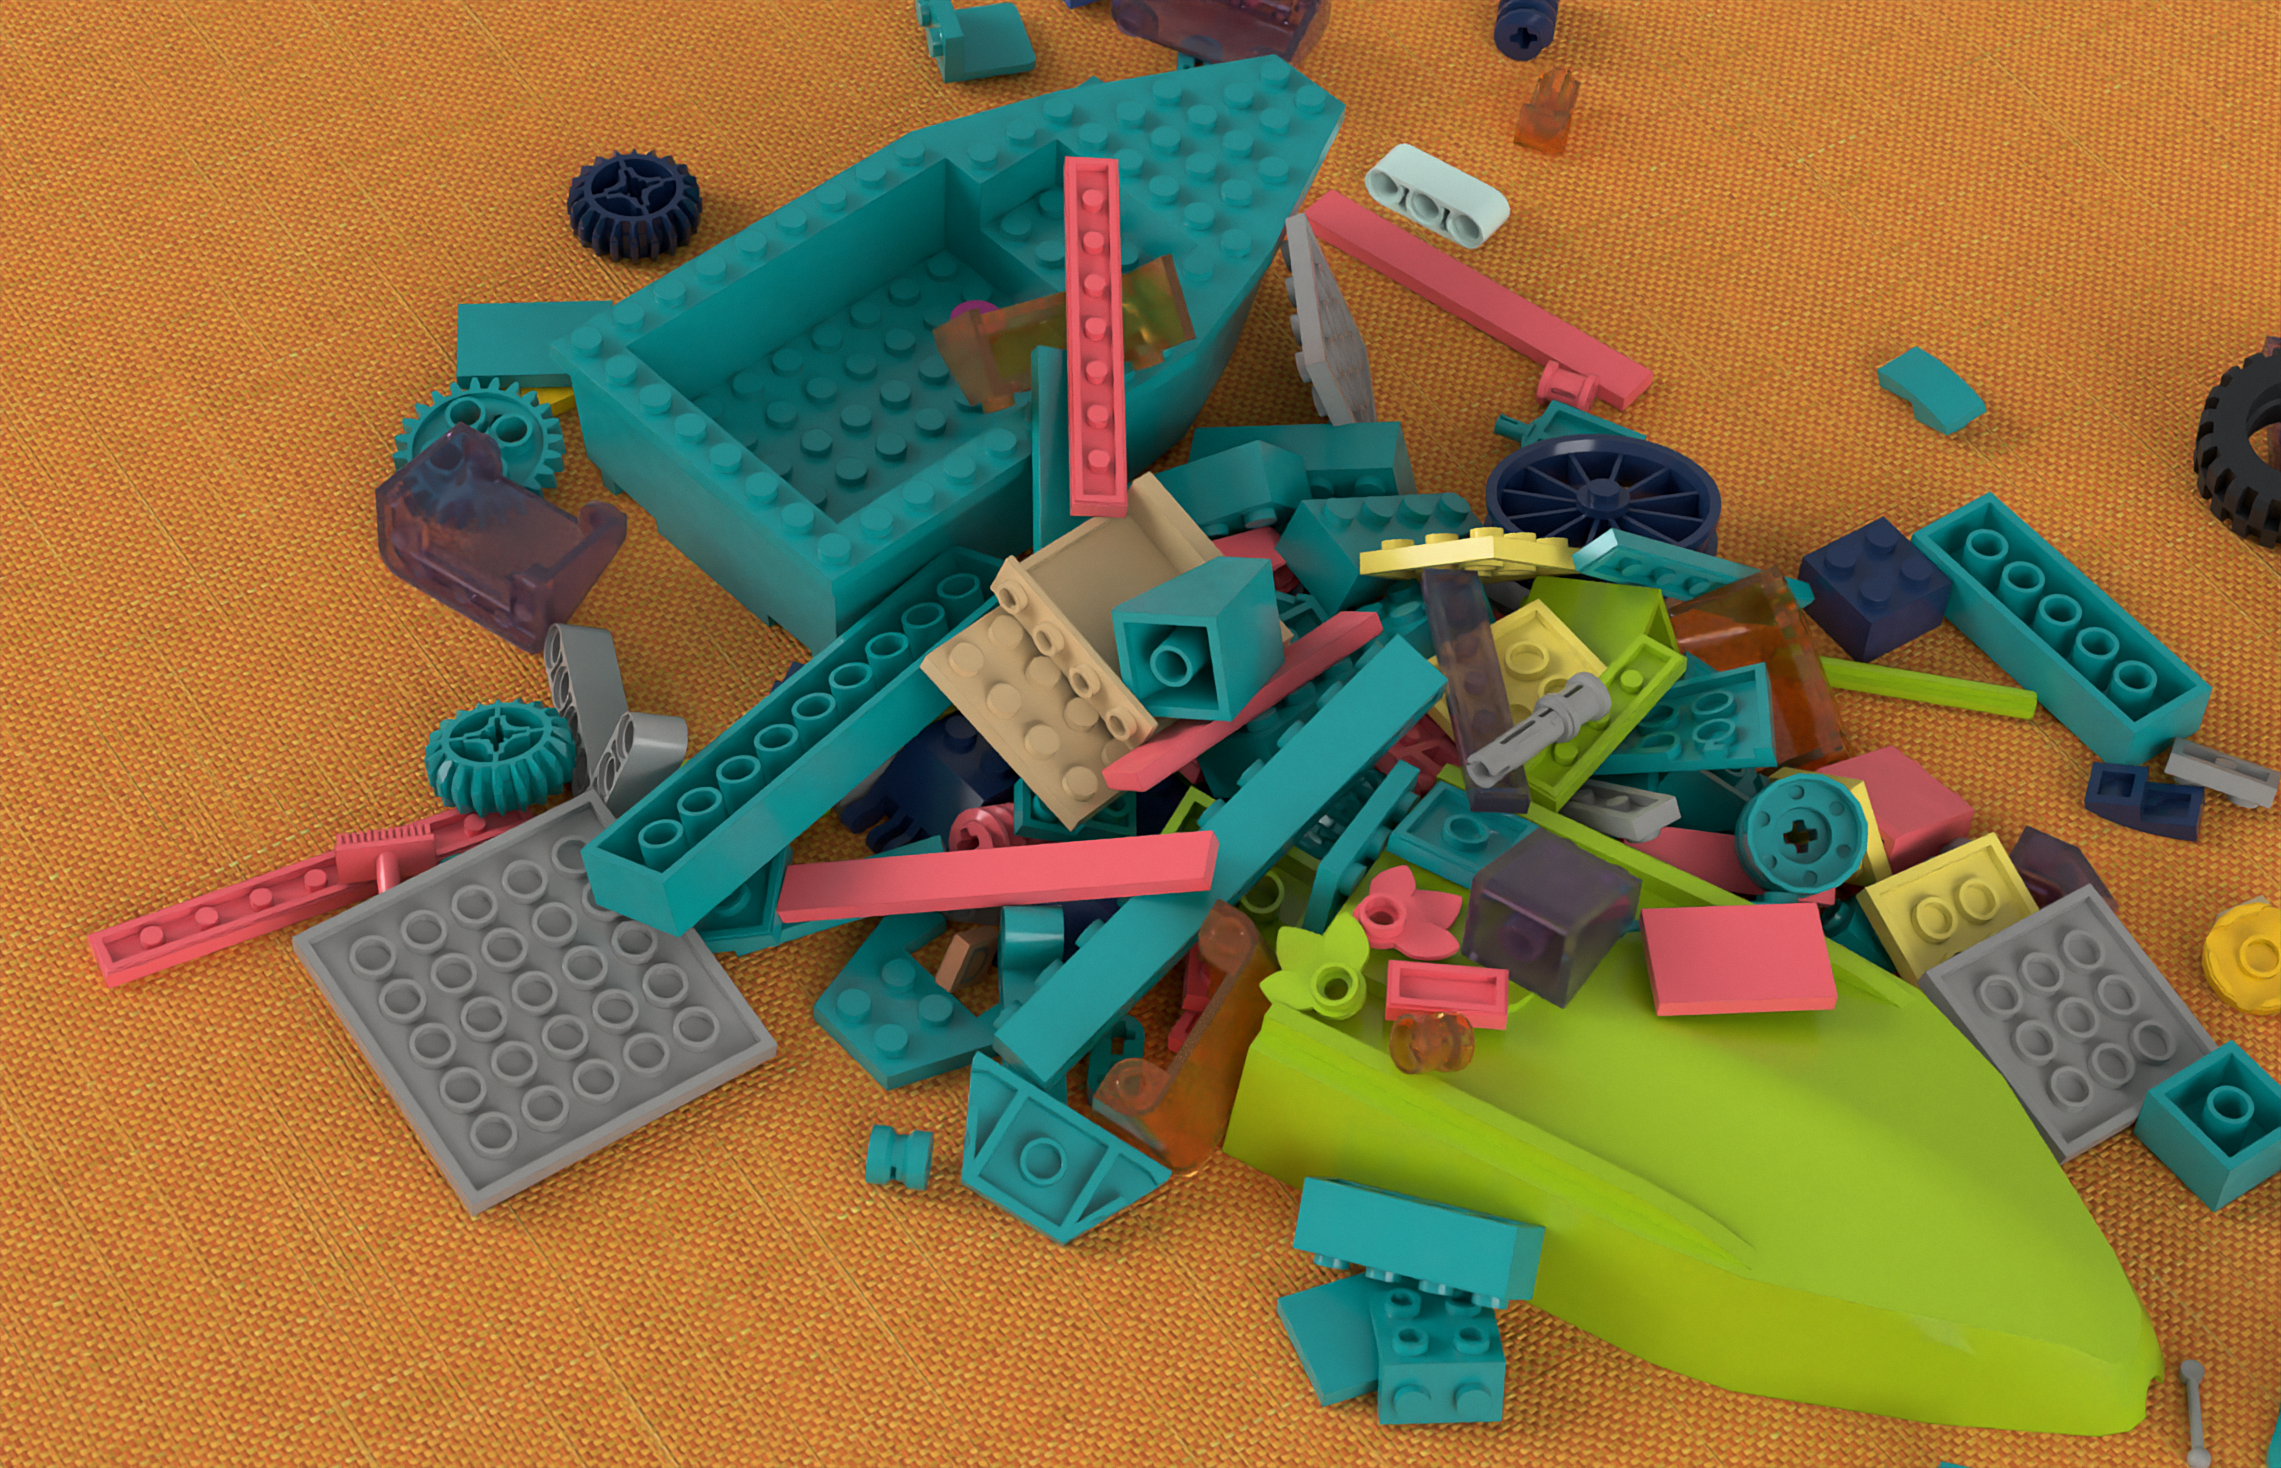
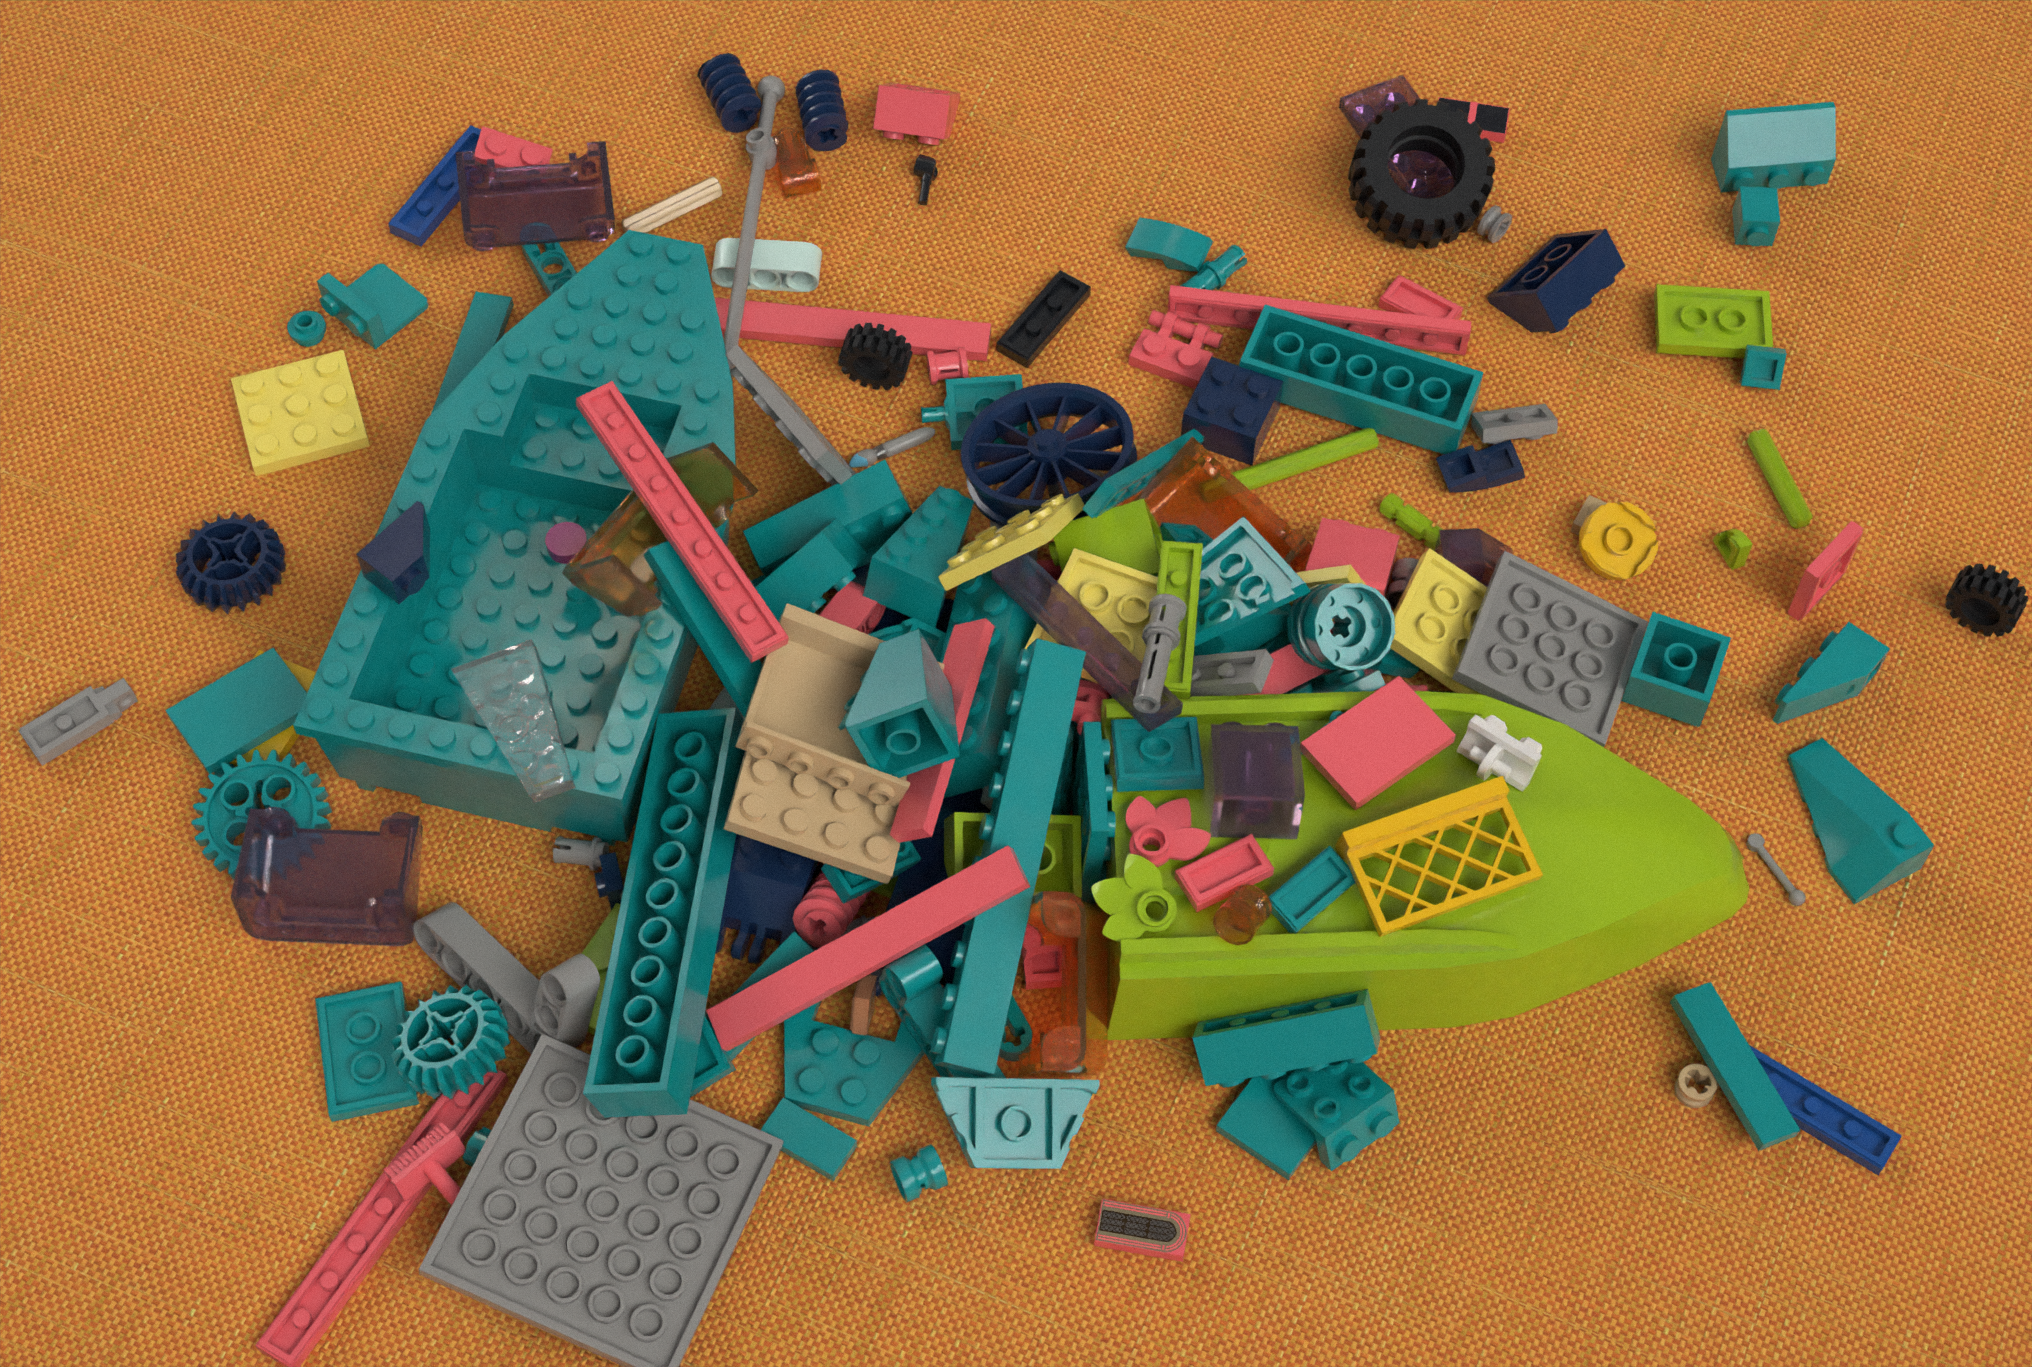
camera: 30 degrees left, 10 degrees up
(368, 274) = (76, 719): none -> light grey hinge
(390, 735) = (358, 1050): none -> teal tile
(777, 652) = (580, 851): none -> light grey pin
(778, 230) = (400, 555): none -> dark blue slope
(780, 442) = (519, 713): none -> clear wing
(810, 1064) = (810, 1139): none -> teal tile
(818, 104) = (299, 412): none -> light yellow plate
(887, 30) = (307, 328): none -> teal plate
(1109, 1358) = (1142, 1230): none -> tile
(1387, 94) = (673, 206): none -> tan axle
(1452, 443) = (869, 456): none -> light grey piece
(1485, 335) = (875, 356): none -> black tyre
(1516, 87) = (763, 155): none -> light grey bar
(1538, 1068) = (1311, 890): none -> teal tile
(1620, 72) = (822, 110): none -> dark blue piece
(1699, 188) = (925, 168): none -> black hand
(1722, 399) = (1043, 319): none -> black tile
(1727, 1059) = (1426, 820): none -> yellow fence
(1729, 122) = (915, 111): none -> coral slope
(1841, 500) = (1172, 358): none -> coral plate
(1877, 1041) = (1499, 752): none -> white hips
(1962, 446) = (1215, 273): none -> teal pin
(2009, 804) = (1410, 520): none -> lime axle
(2158, 609) = (1392, 327): none -> coral tile
(2202, 602) = (1411, 298): none -> coral tile

